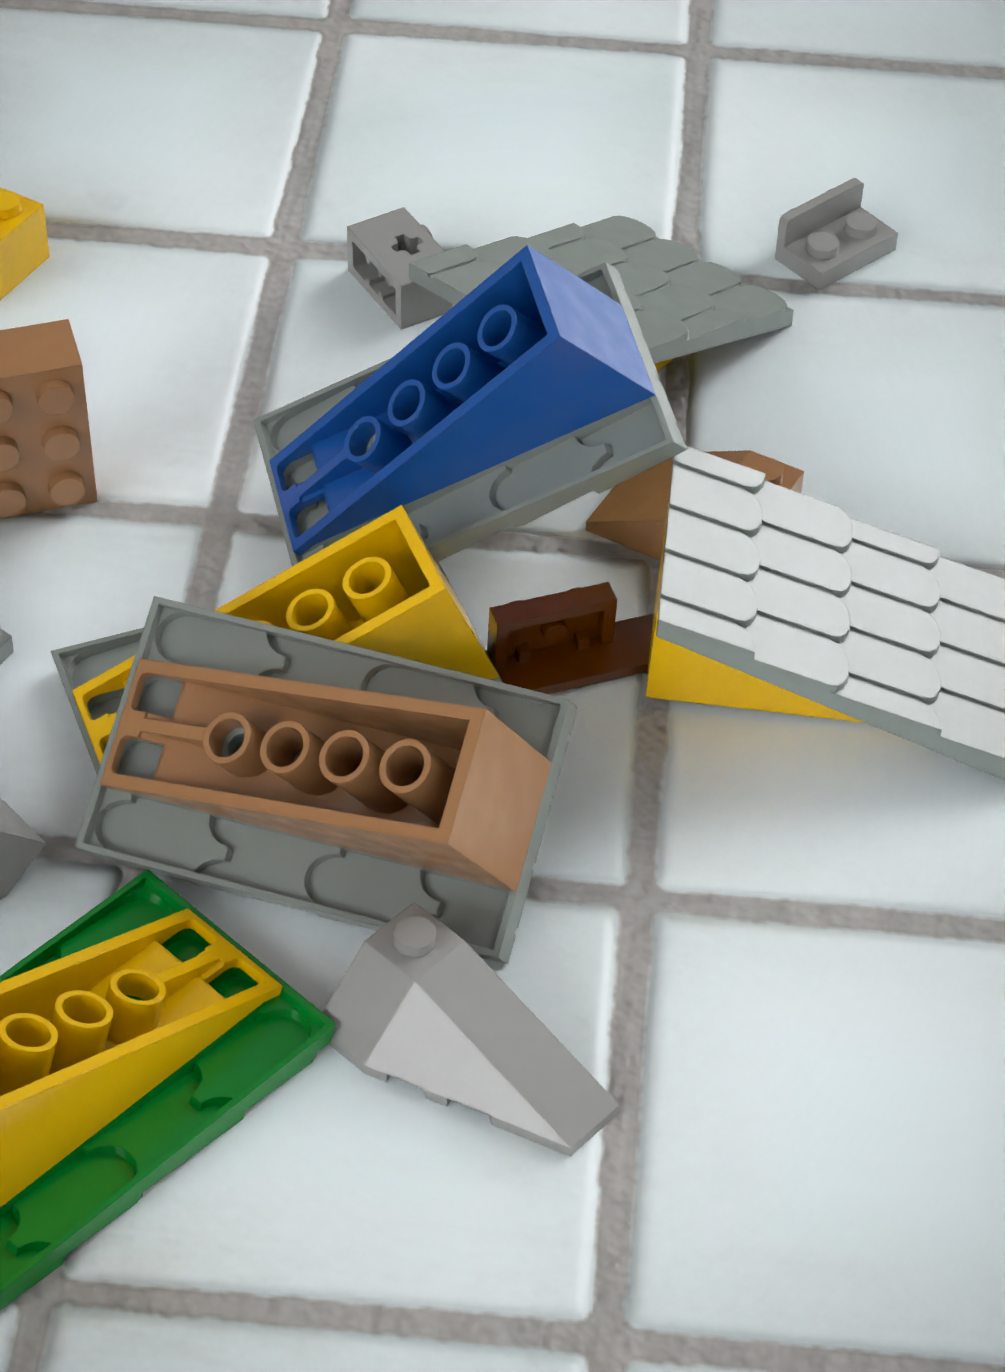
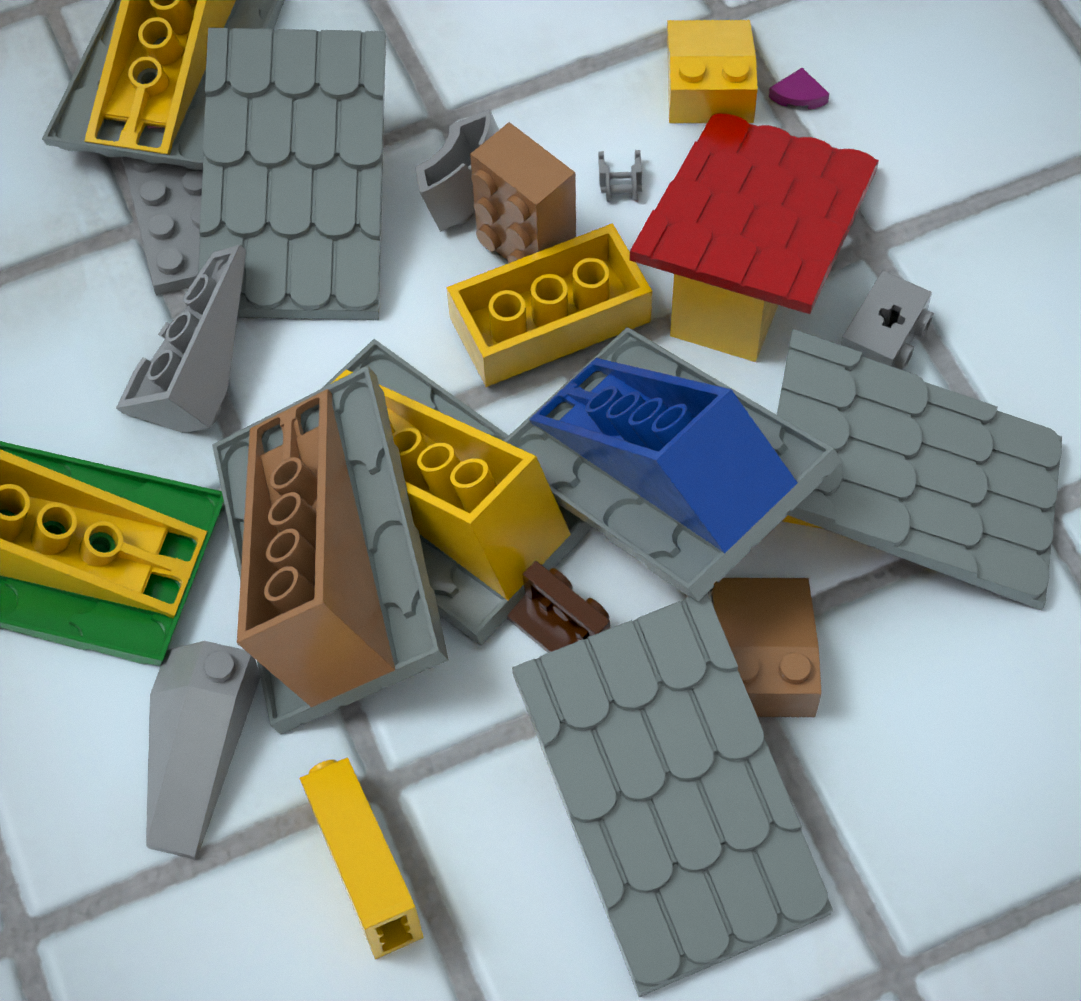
camera: 65 degrees right, 15 degrees up
(57, 198) = (799, 90): none -> magenta tile
(152, 482) = (549, 304): none -> yellow brick
(224, 287) = (751, 229): none -> red piece
(741, 922) = (362, 857): none -> yellow slope

